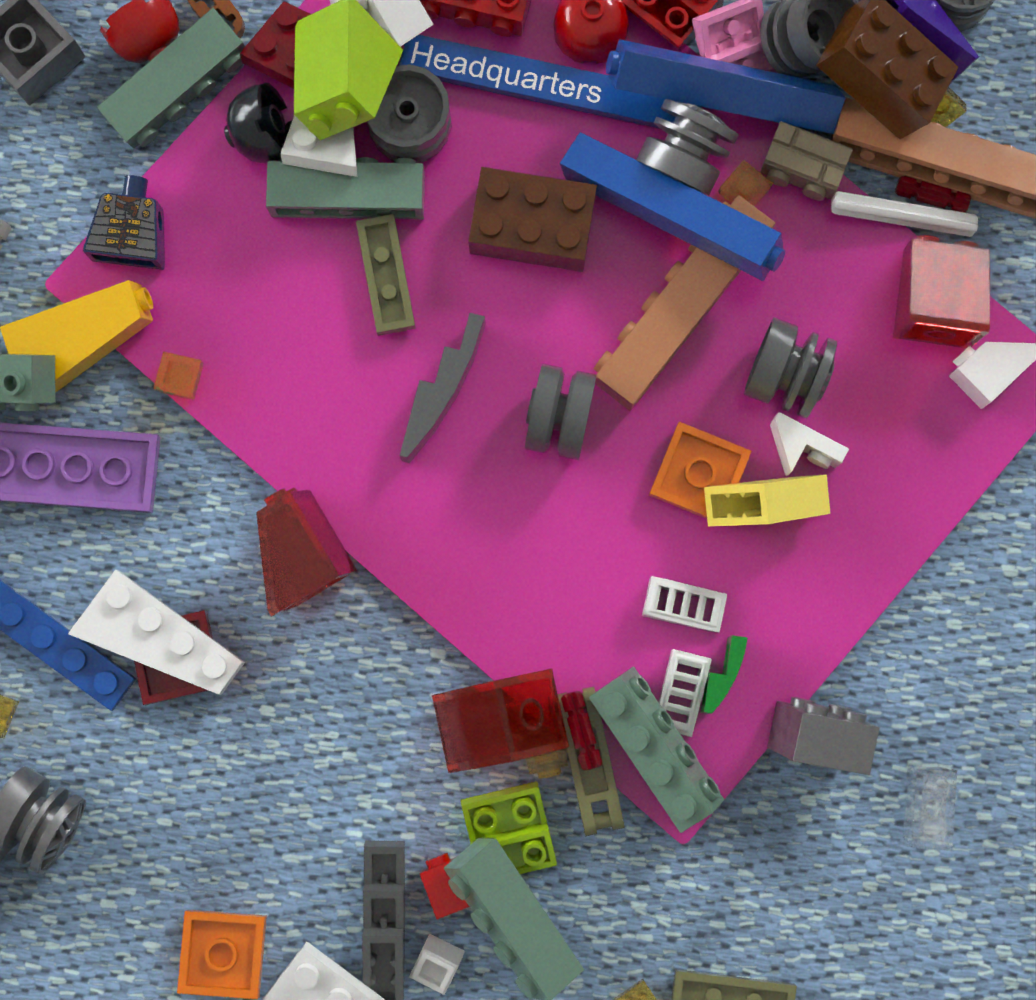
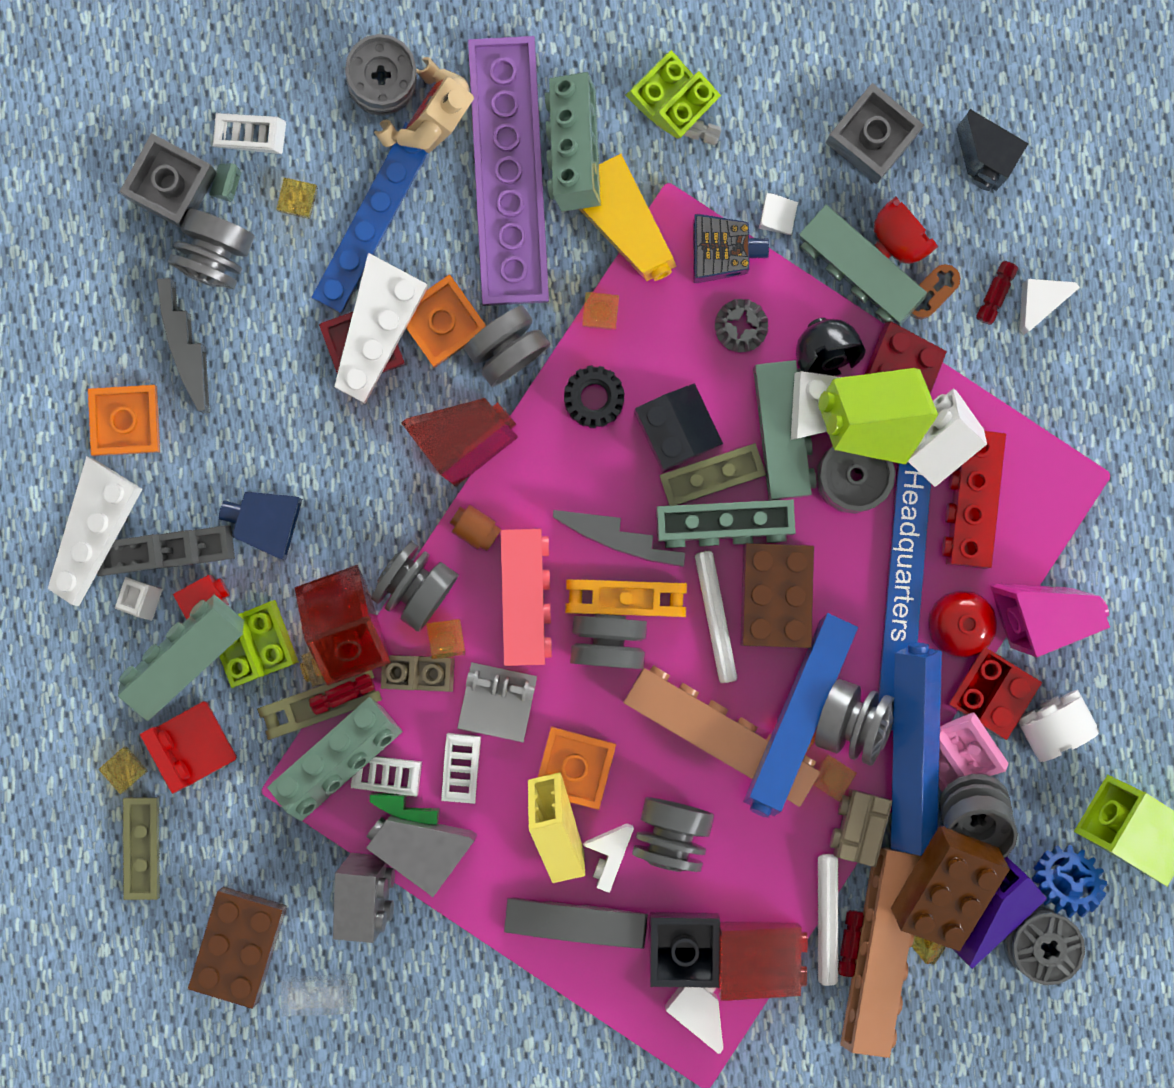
camera: 80 degrees right, 5 degrees up
(100, 168) = (778, 214): none -> white slope
(157, 865) = (188, 357): none -> dark grey slope
(164, 558) = (444, 321): none -> orange plate
(196, 489) = (506, 345): none -> flat silver wheel
(226, 237) = (728, 333): none -> dark grey gear
(276, 419) = (601, 377): none -> black tyre
(325, 308) = (678, 427): none -> black slope
(365, 800) = (264, 521): none -> dark blue torso
(407, 551) = (474, 527): none -> dark orange brick
(439, 264) = (725, 520): none -> sand green brick
(466, 627) = (414, 586): none -> dark grey wheel
(495, 505) = (524, 597): none -> coral brick
(512, 390) = (626, 598): none -> light orange plate
(532, 602) = (445, 639): none -> plate
(547, 292) = (716, 617): none -> white axle
(568, 640) = (418, 673): none -> dark tan slope
(613, 552) = (497, 702): none -> light grey hinge
(620, 924) = (189, 747): none -> red bracket
(776, 659) = (420, 850): none -> flat silver slope
(864, 895) = (237, 947): none -> reddish brown brick
(878, 494) = (576, 923): none -> dark grey slope
(923, 372) = (684, 949): none -> black slope

